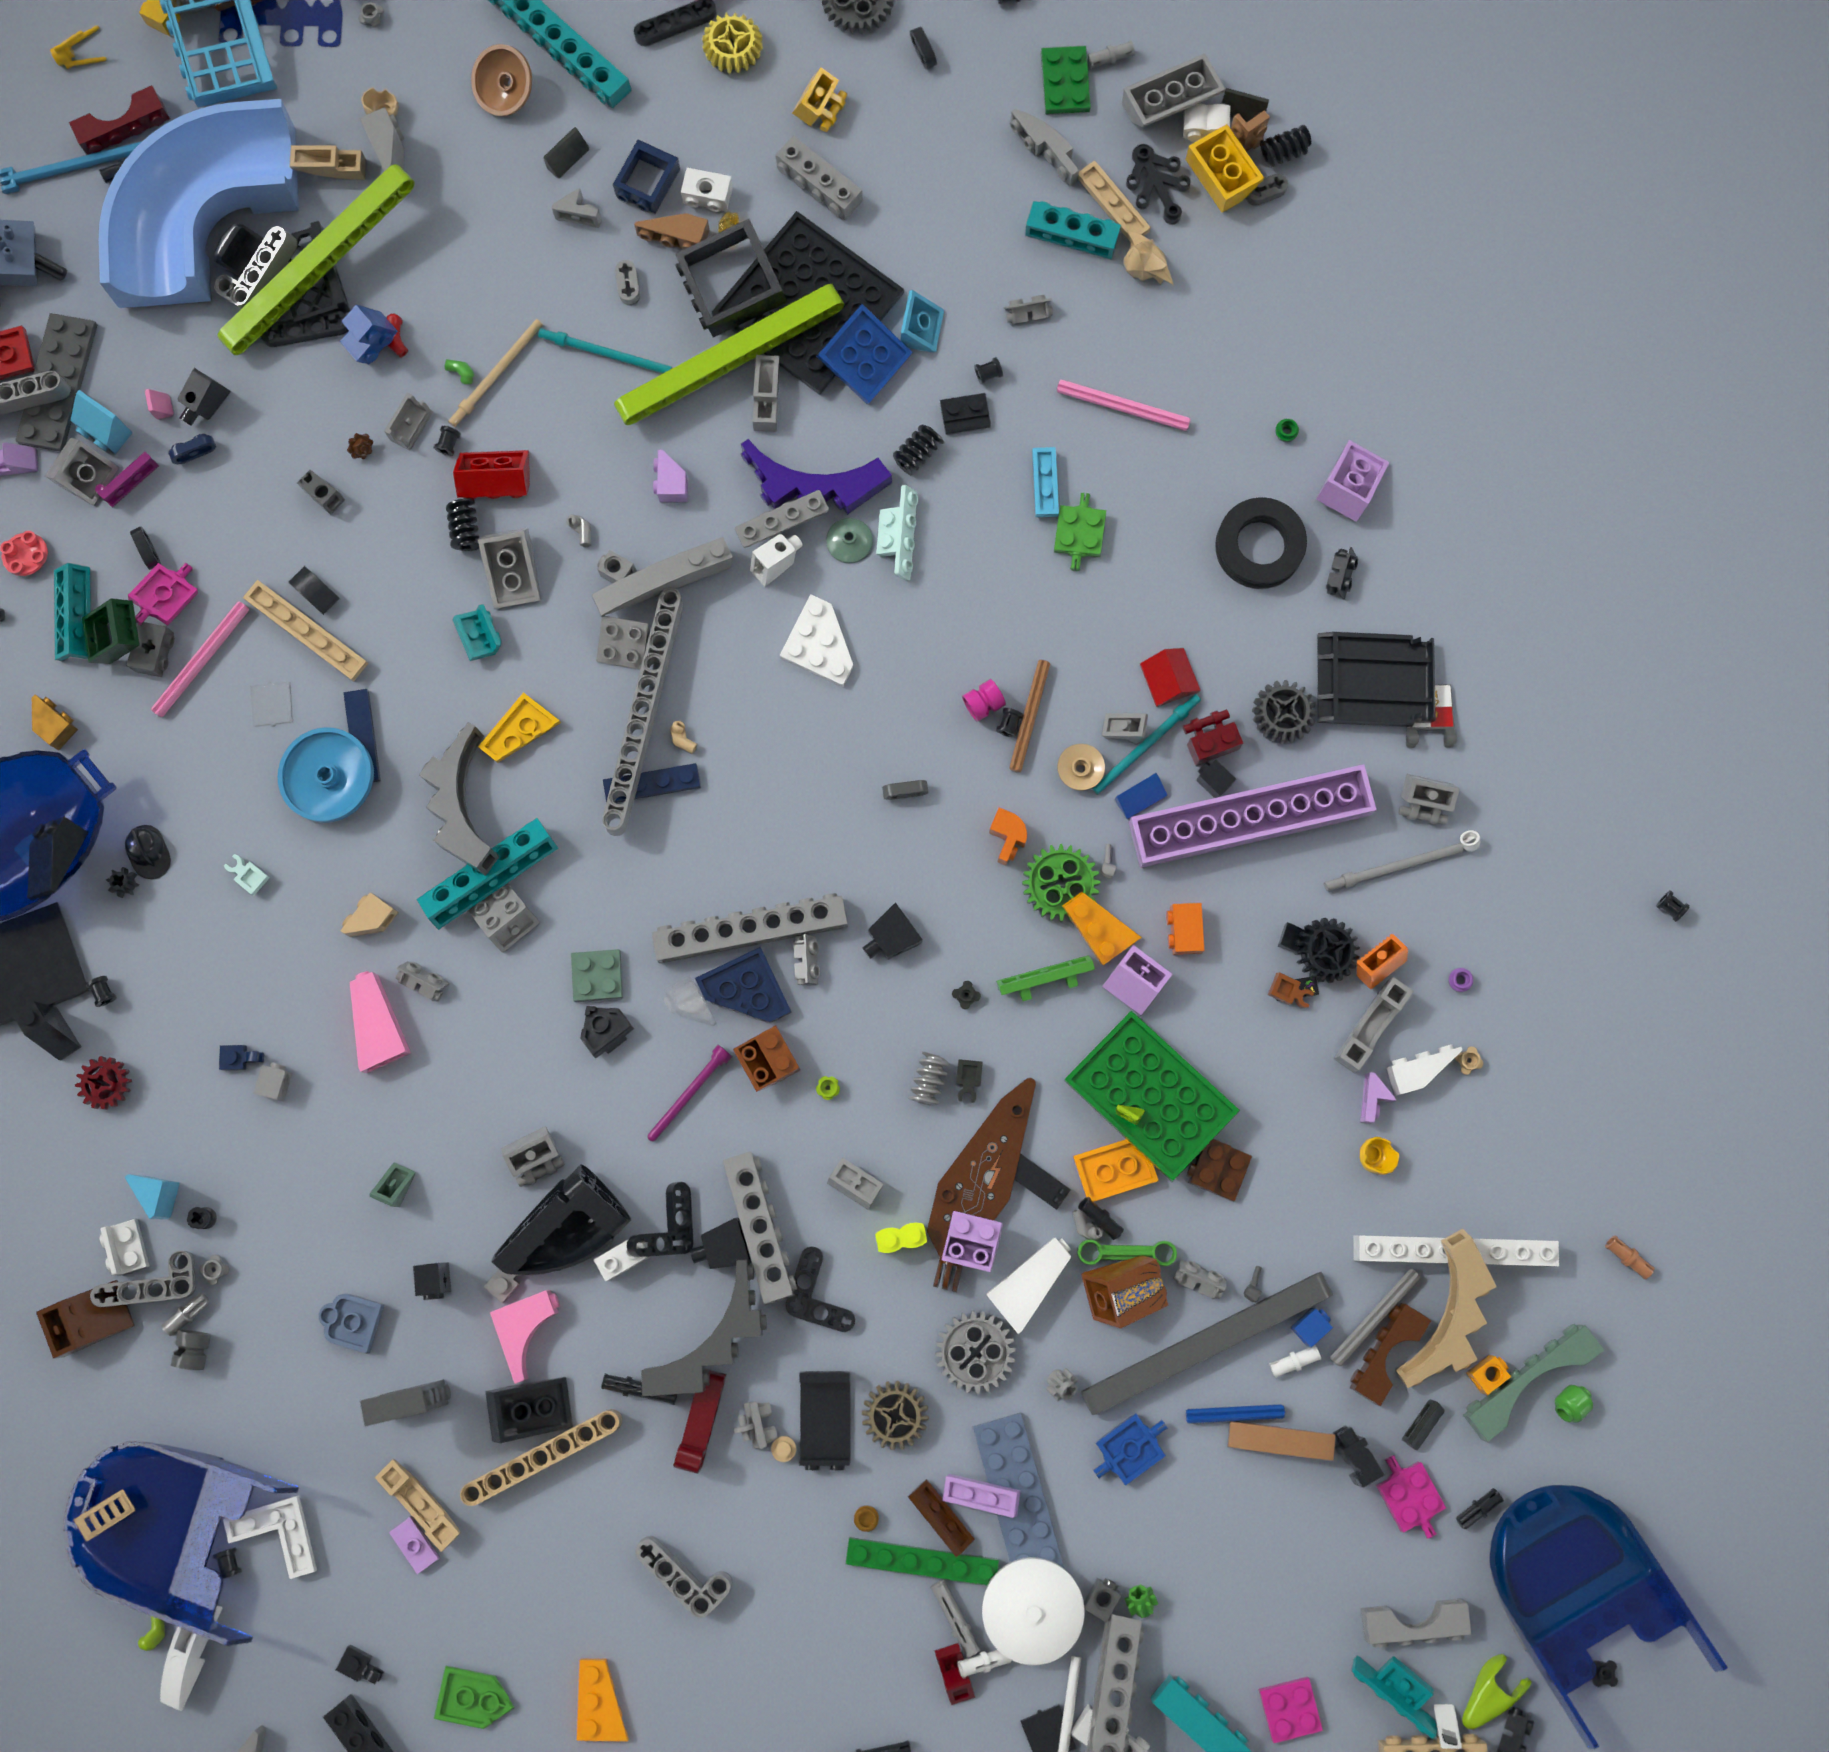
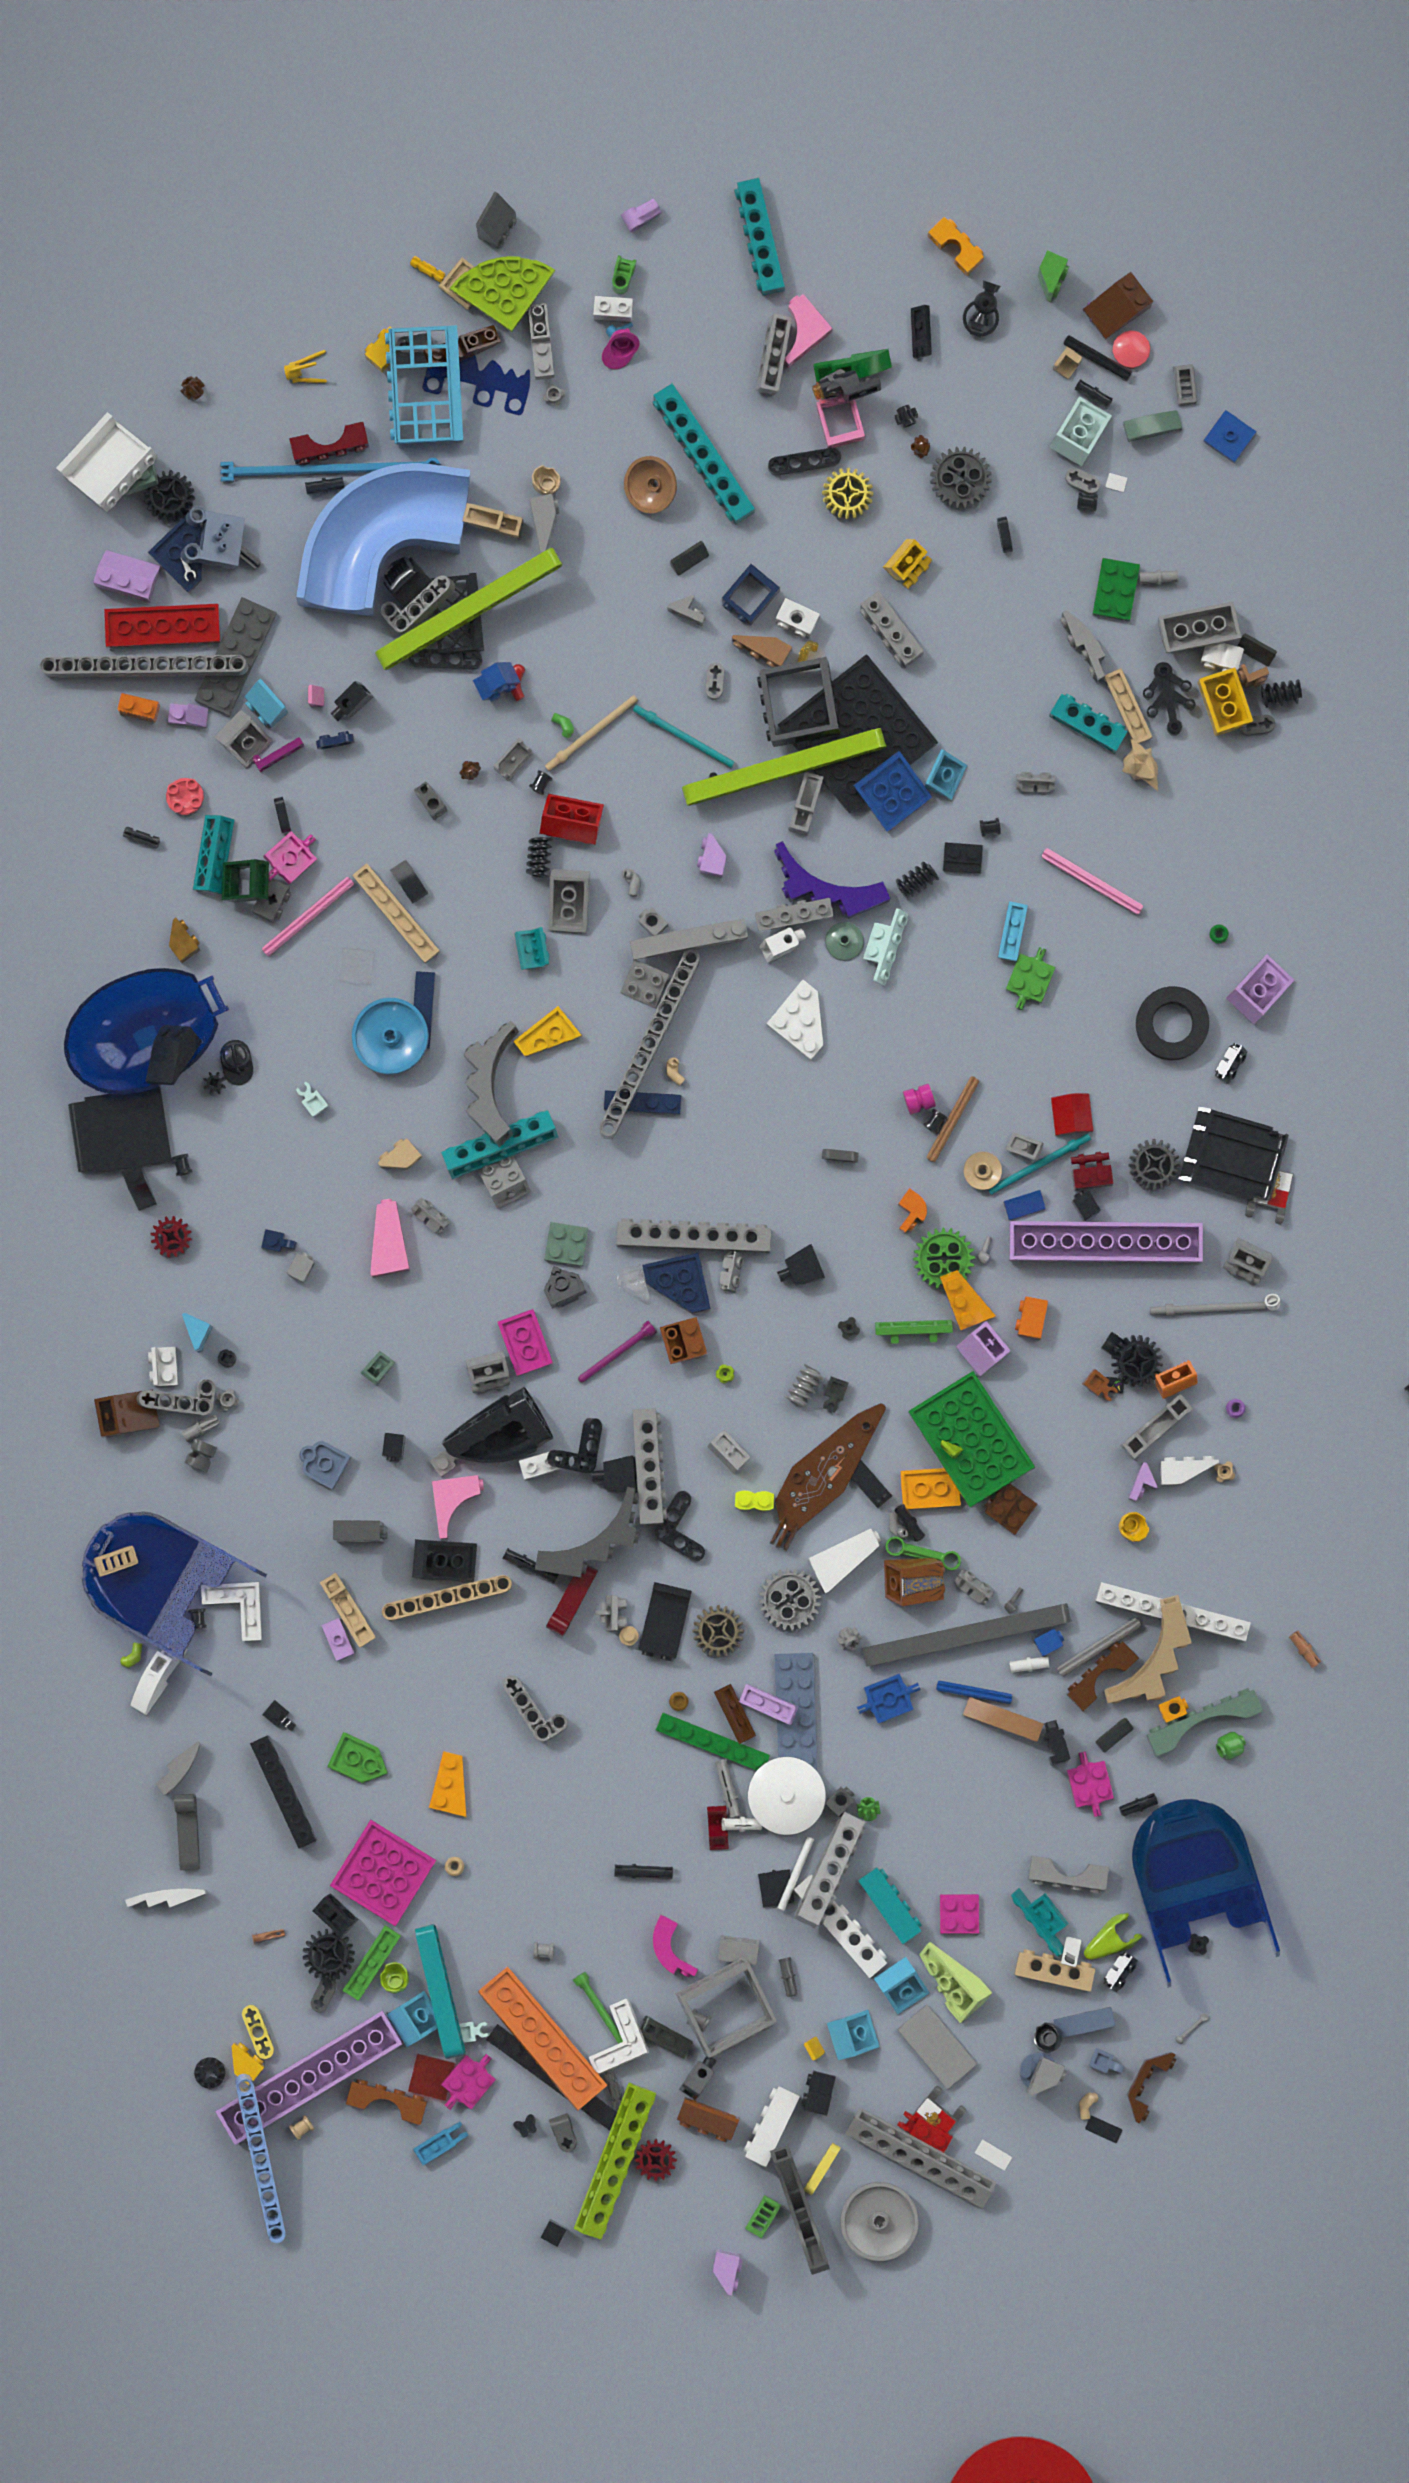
camera: 15 degrees right, 5 degrees up
(571, 1108) = (525, 1342): none -> dark pink plate
(972, 1241) = (807, 1515): lavender slope -> none

